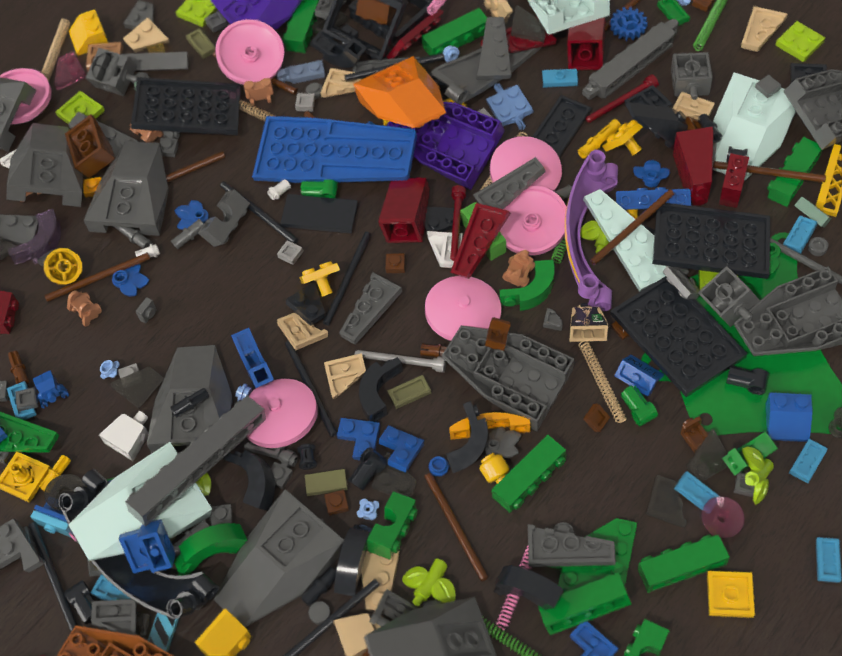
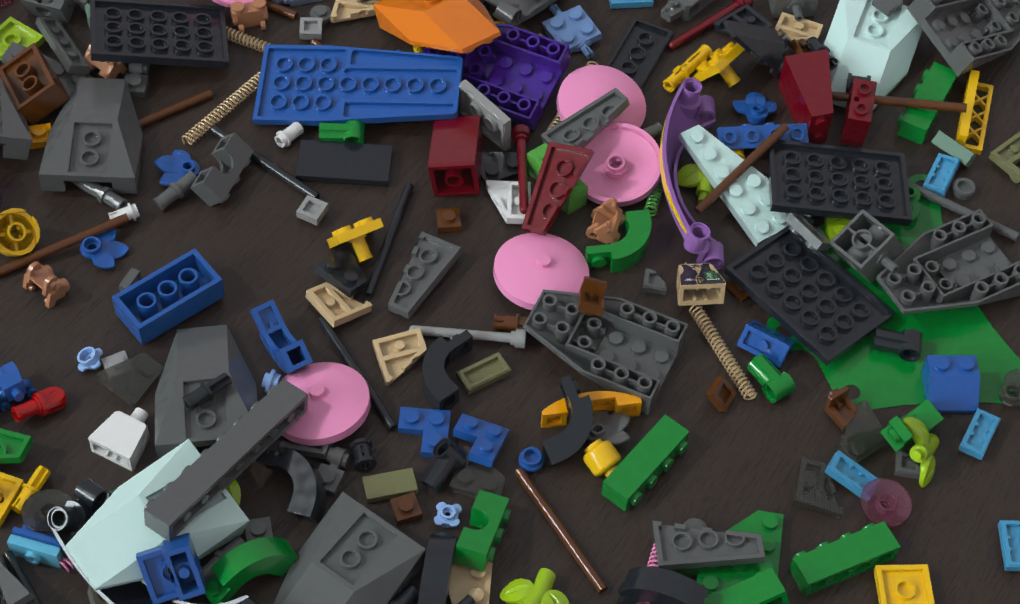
camera: 15 degrees left, 5 degrees down
(70, 404) = (41, 403): none -> red arm
(115, 115) = (62, 45): none -> dark grey tile
(172, 321) = (168, 296): none -> blue brick
(238, 165) = (221, 111): none -> tan piece
(436, 182) = (494, 122): none -> light grey tile

